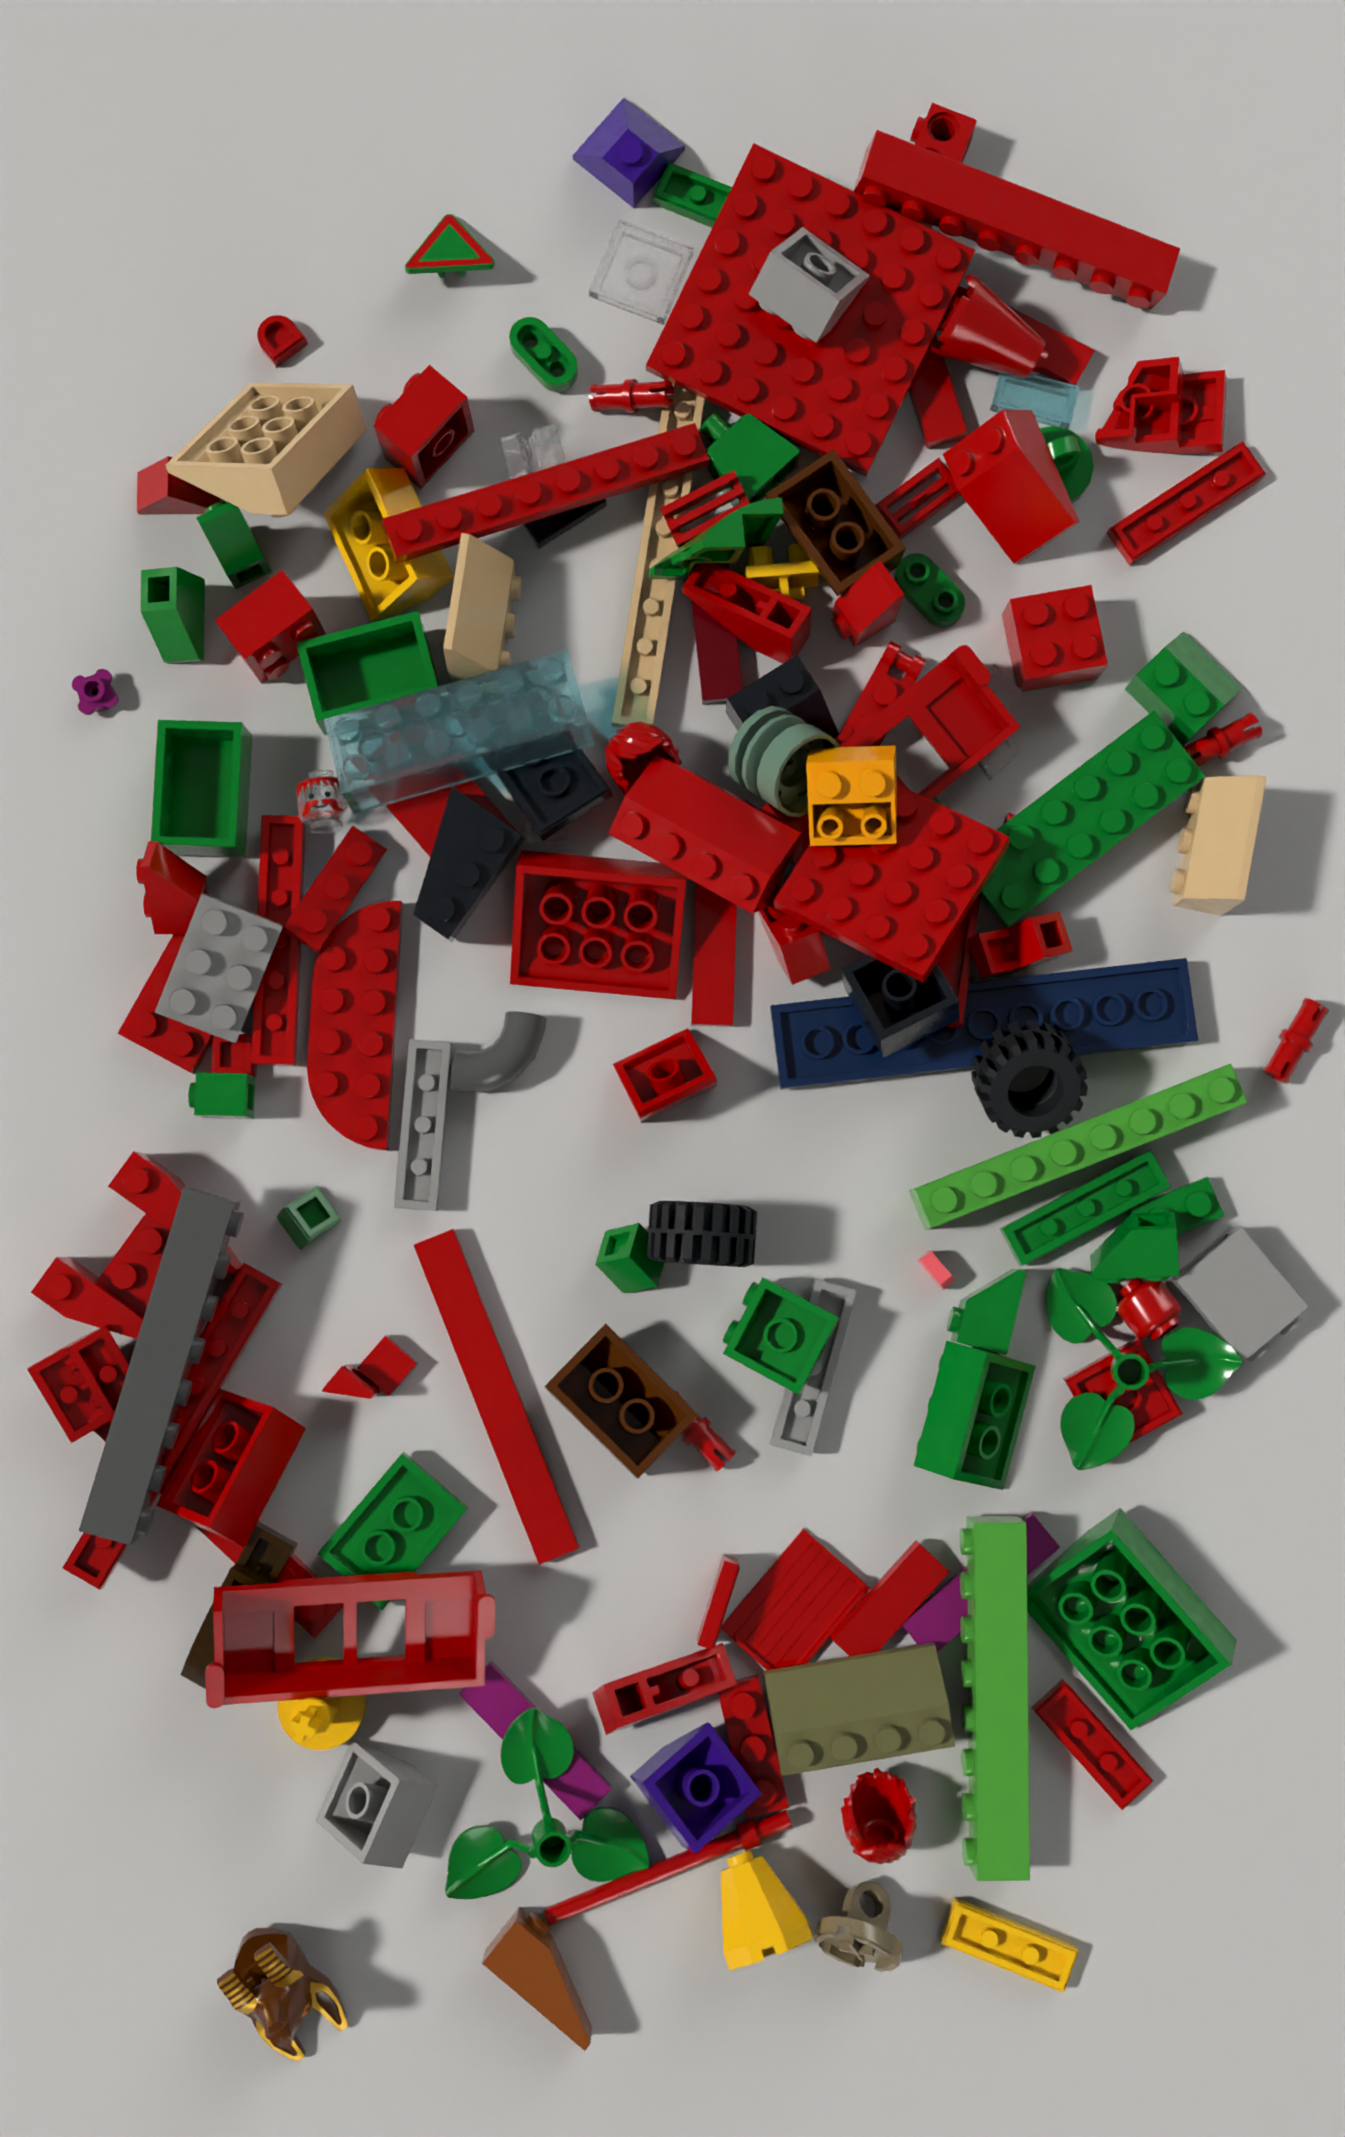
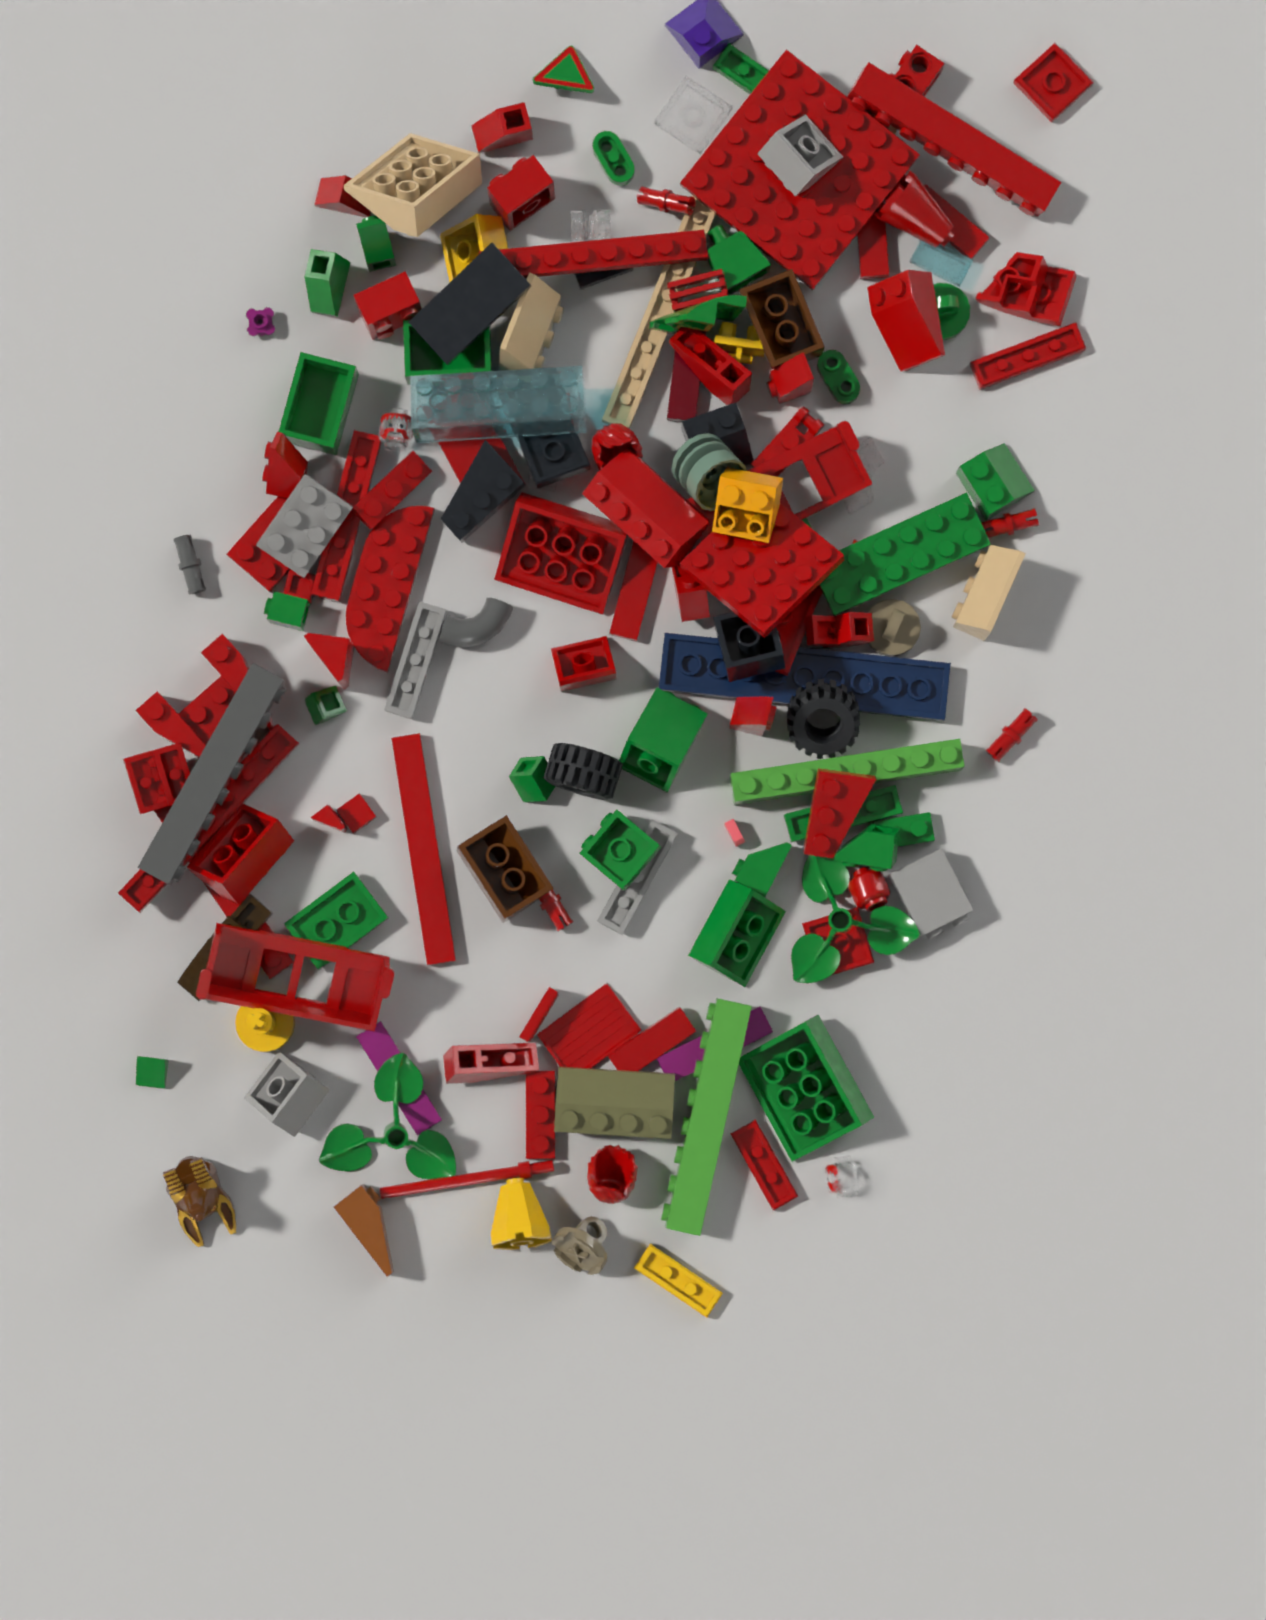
camera: 15 degrees right, 0 degrees up
(68, 1060) = (189, 564): none -> dark grey pin
(172, 1814) = (151, 1072): none -> green slope
(280, 339) = (437, 107): red tile -> none
(305, 1146) = (335, 654): none -> red slope
(379, 344) = (503, 128): none -> red slope
(386, 595) = (470, 303): none -> black tile
(696, 1786) = (497, 1128): dark purple slope -> none
(804, 1159) = (662, 739): none -> green slope
(928, 511) = (838, 304): red tile -> none
(928, 1095) = (753, 715): none -> red slope
(1054, 638) = (913, 429): red brick -> none
(1075, 1207) = (833, 809): none -> red wing
(1095, 924) = (894, 627): none -> dark tan tile
(1129, 120) = (1053, 82): none -> red tile
(1214, 1737) = (845, 1177): none -> clear head

